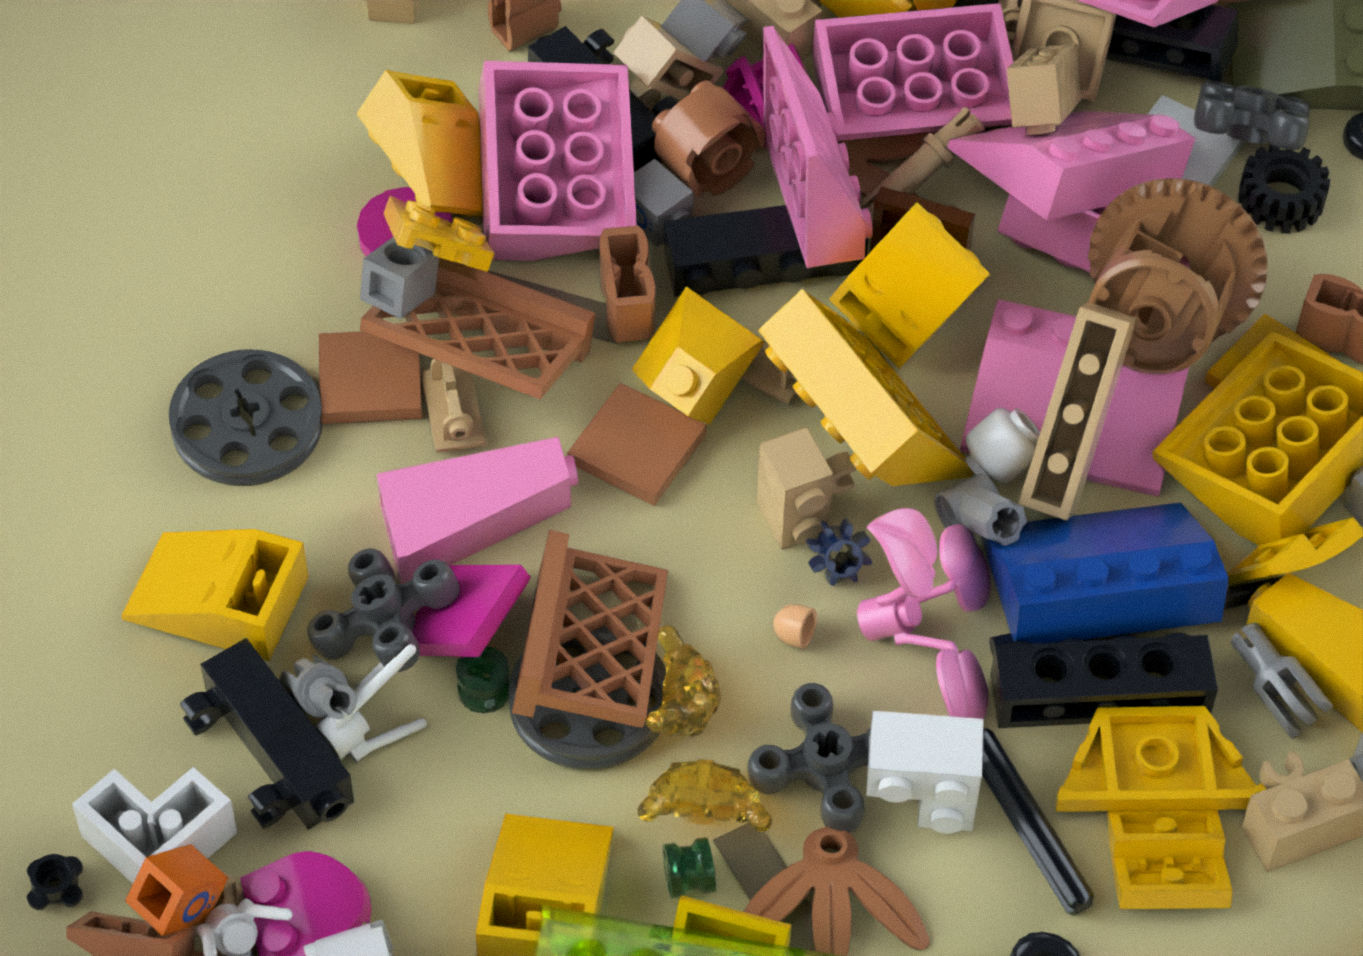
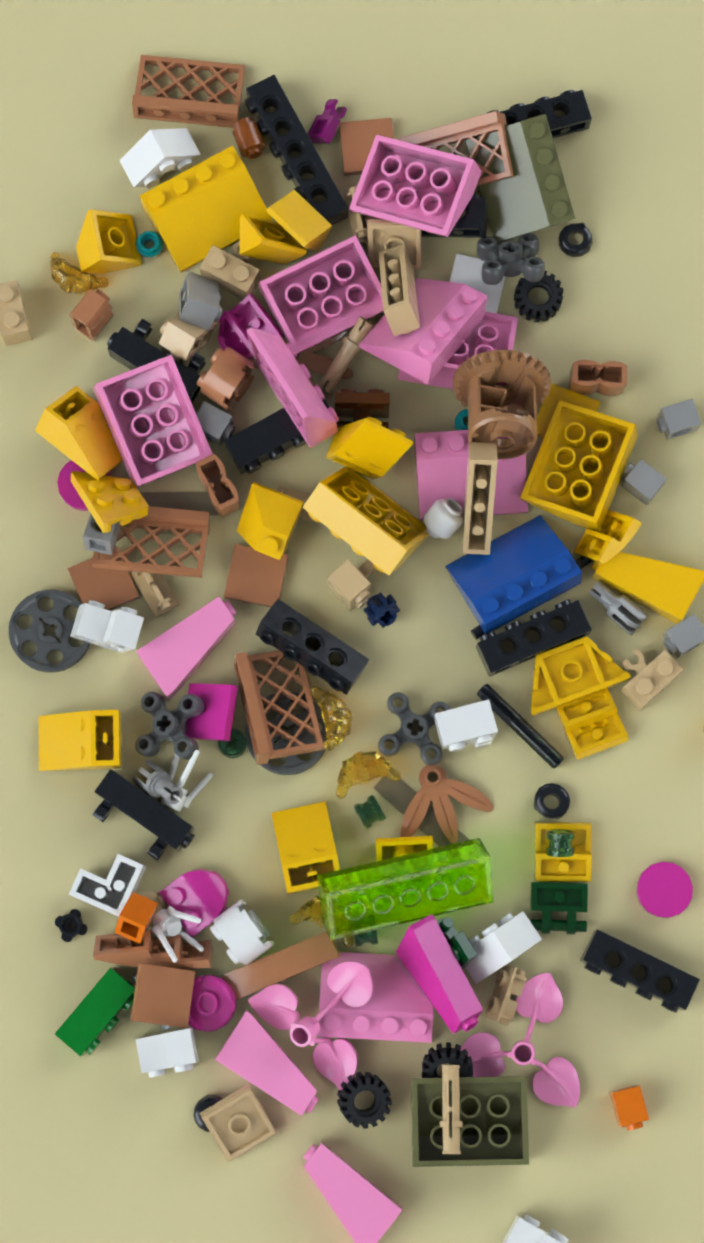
camera: 20 degrees left, 25 degrees up
(343, 427) = (109, 629): none -> white brick
(691, 568) = (308, 634): none -> black brick
(795, 625) = (375, 655): light nougat hinge -> none
(911, 553) = (425, 632): bright pink plant -> none
(981, 509) = (442, 560): light grey piece -> none

